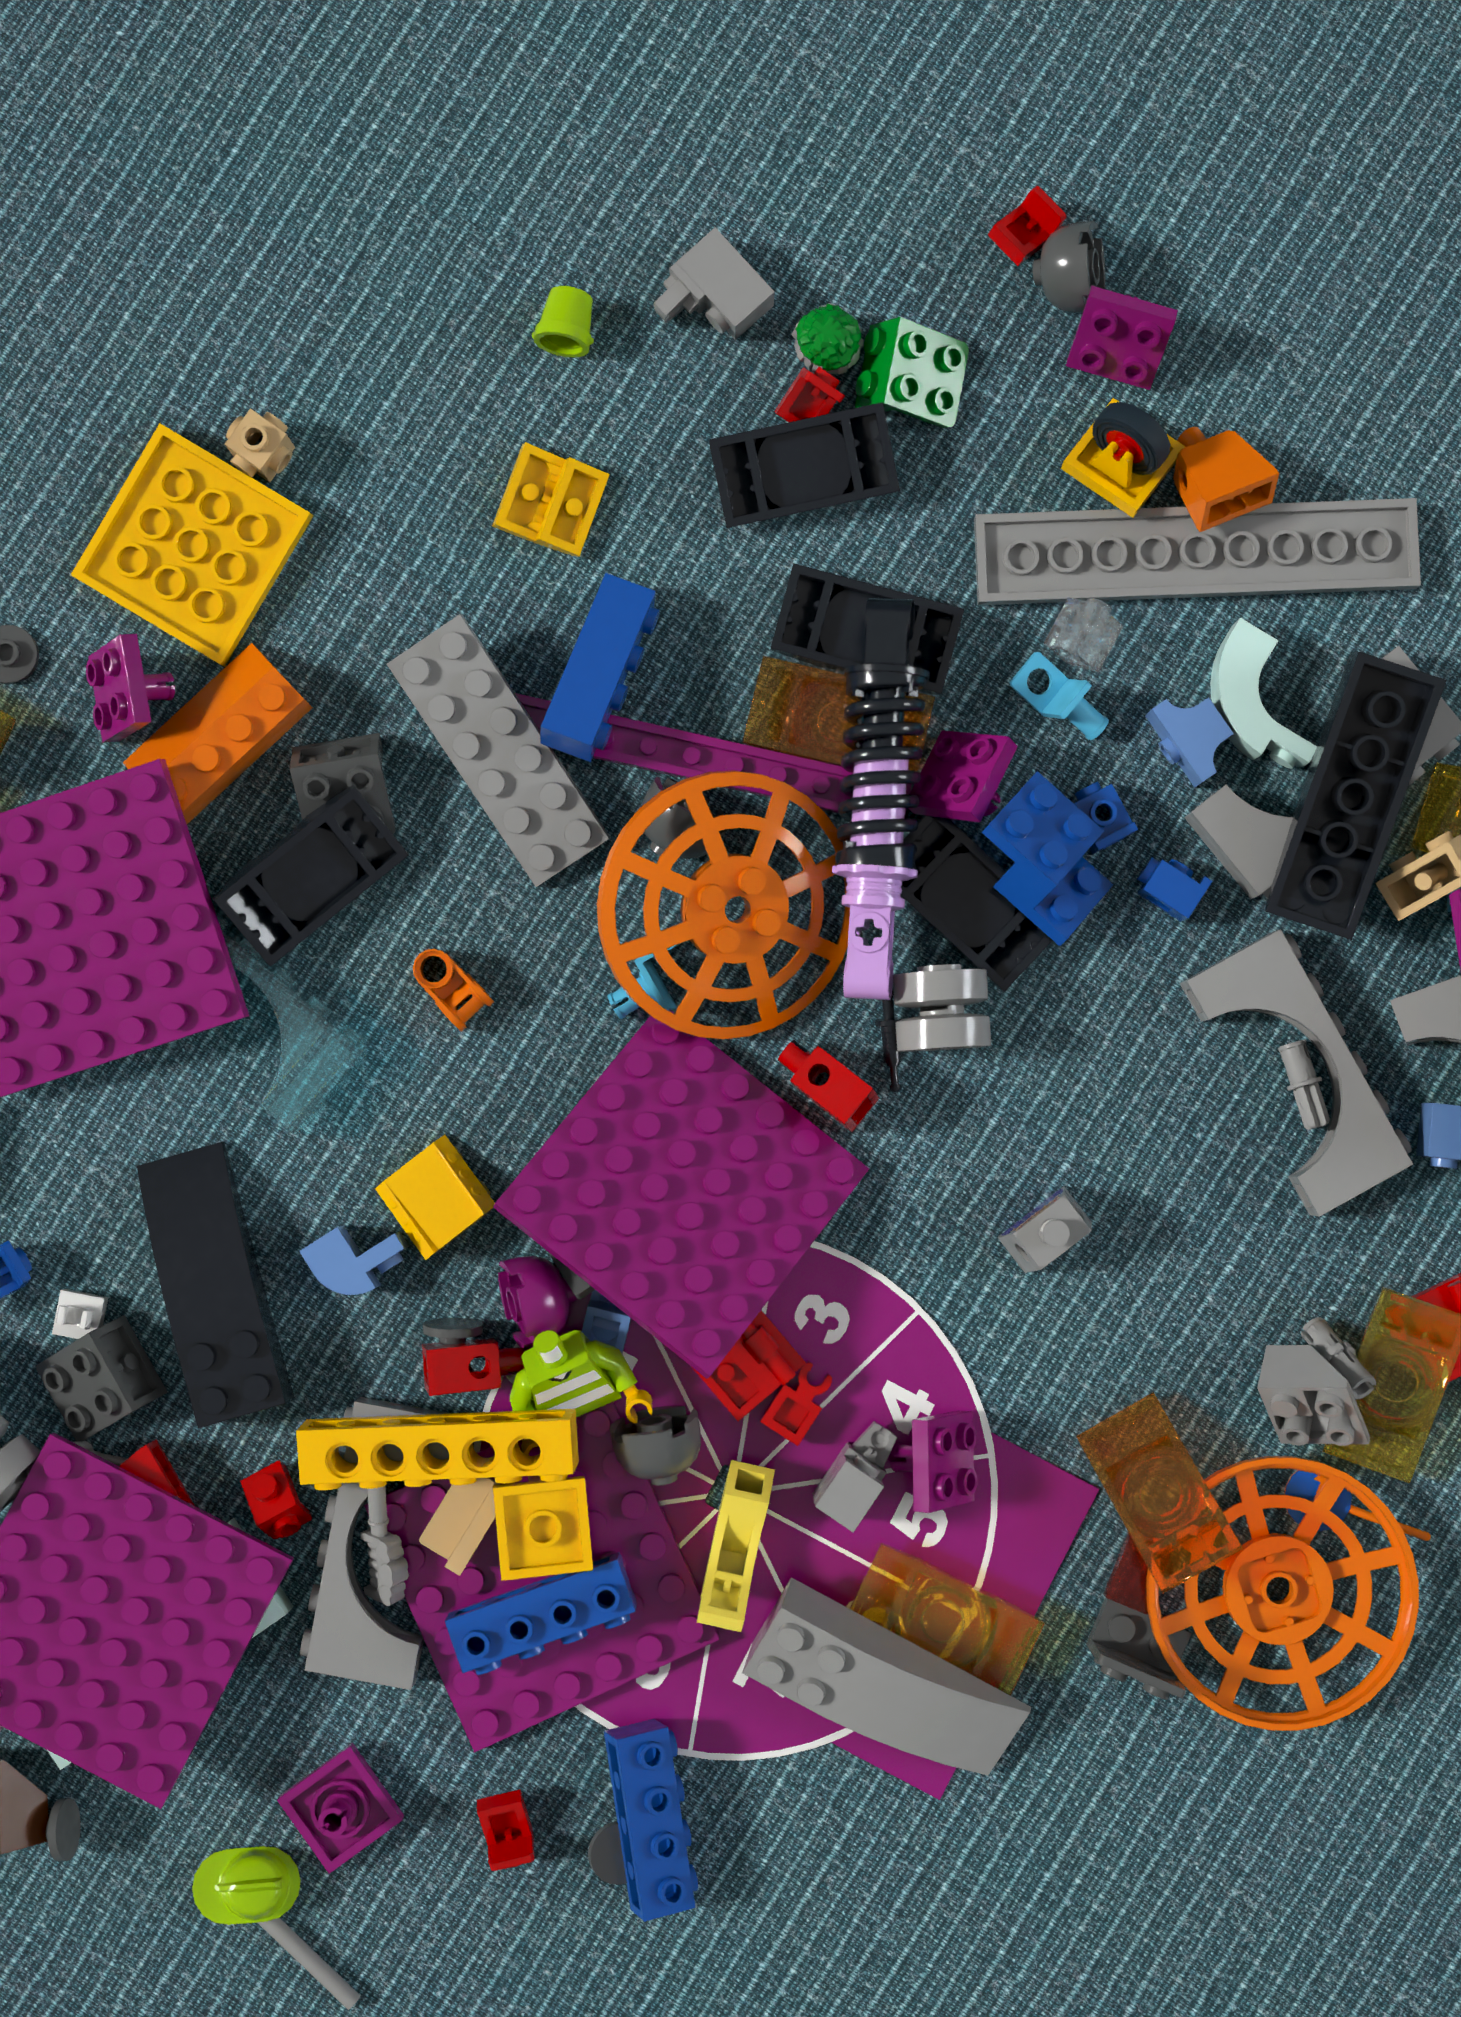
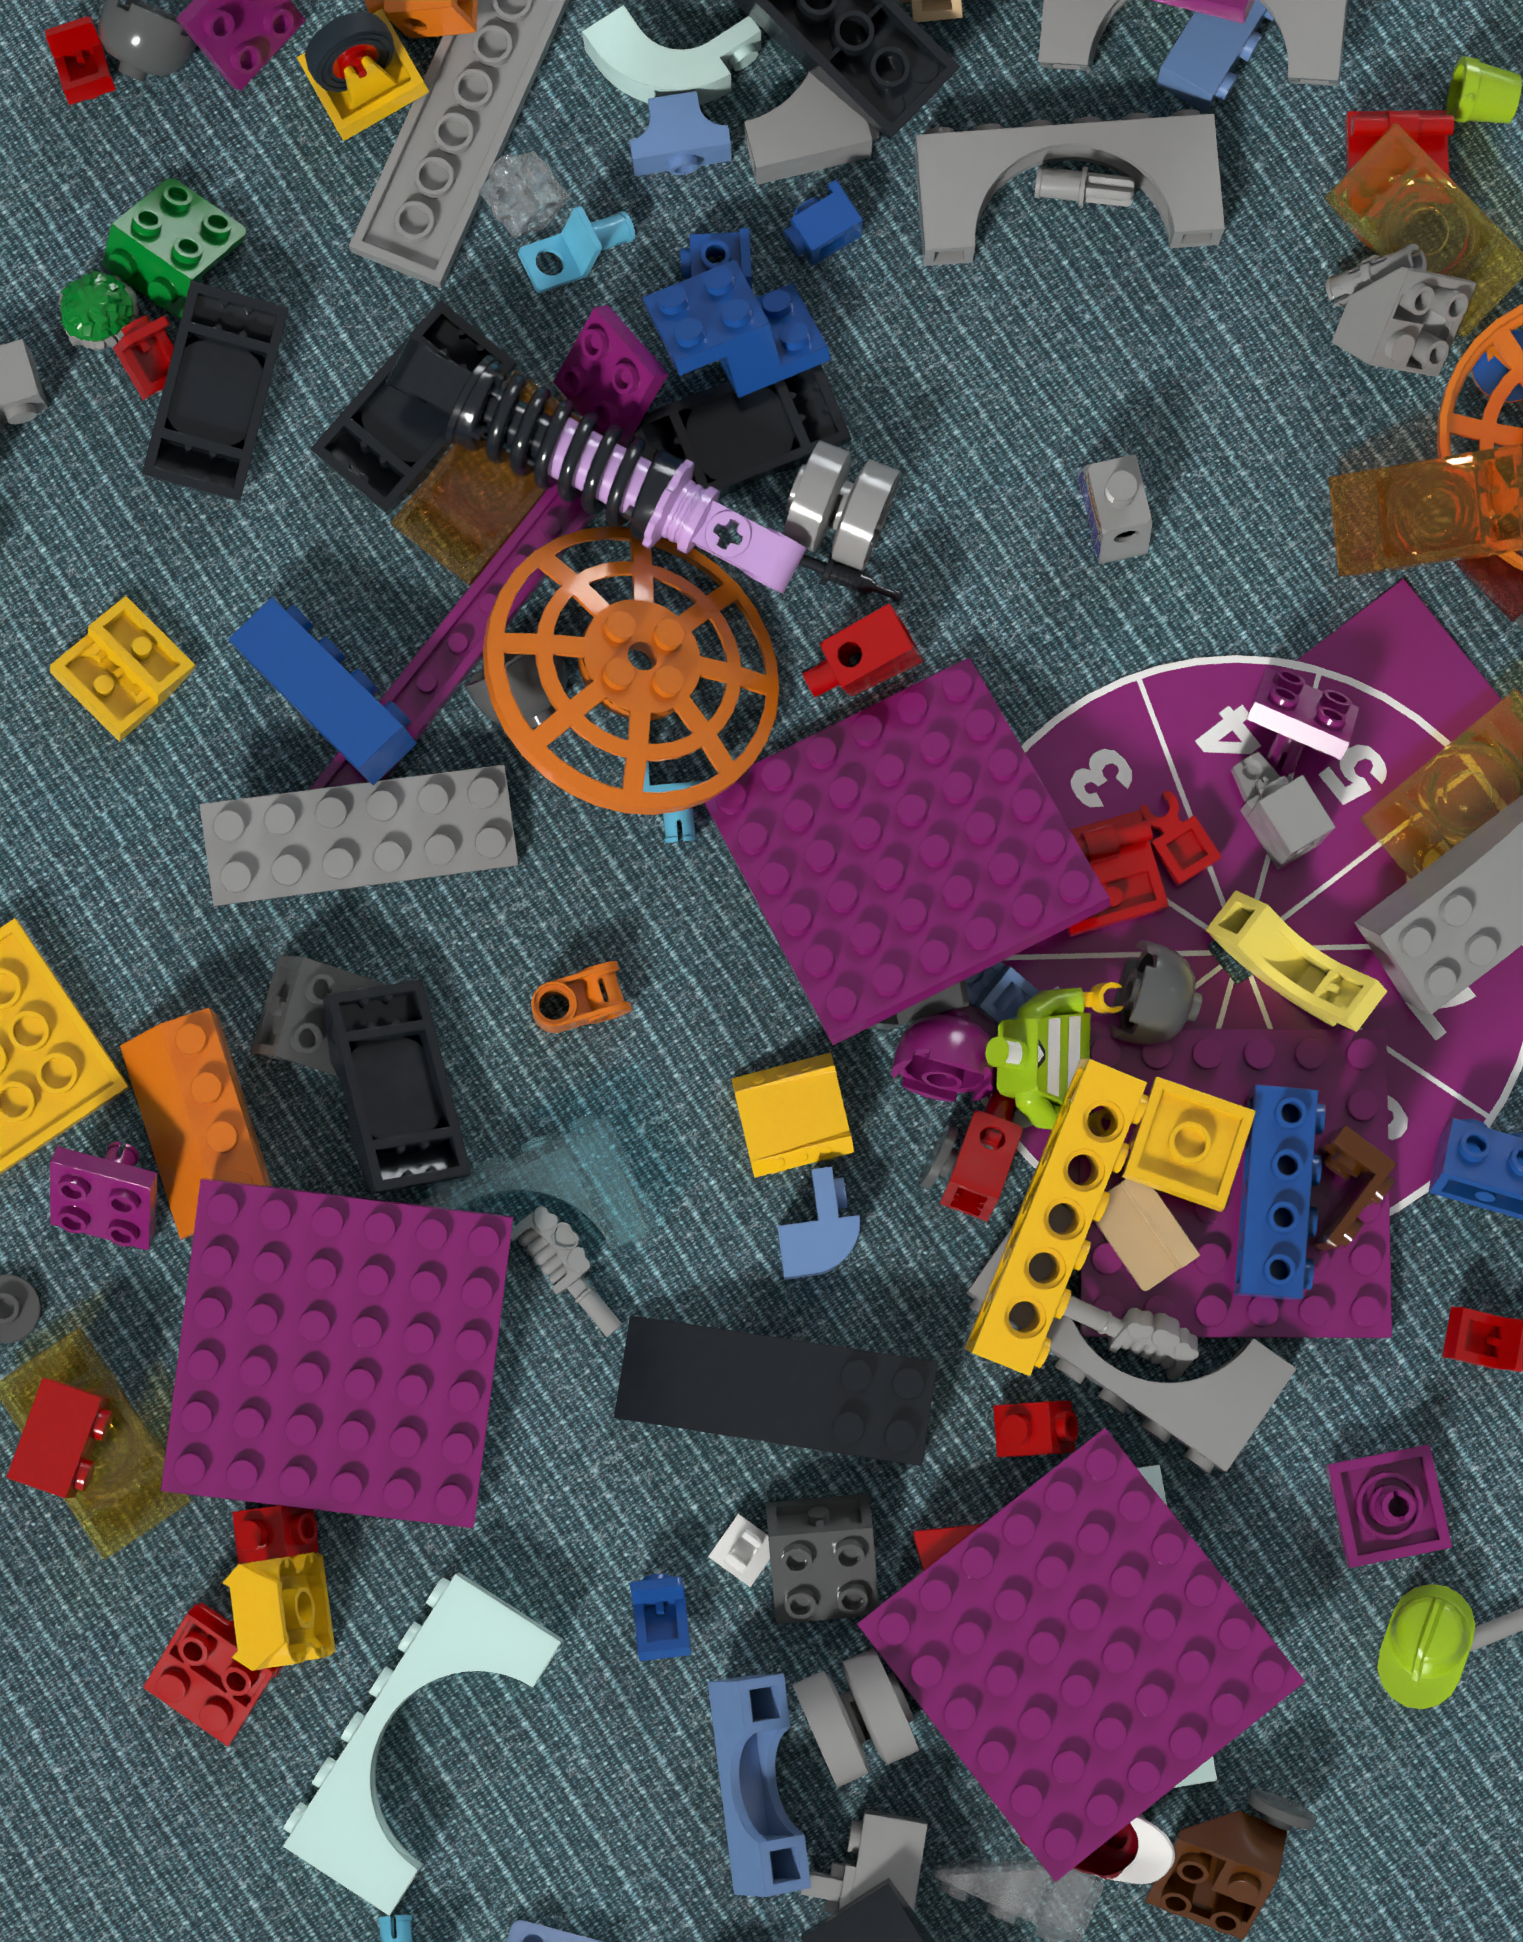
camera: 65 degrees left, 5 degrees down
(241, 1071) = (559, 1252): none -> light grey piece
(572, 1686) = (1347, 1157): none -> reddish brown bracket

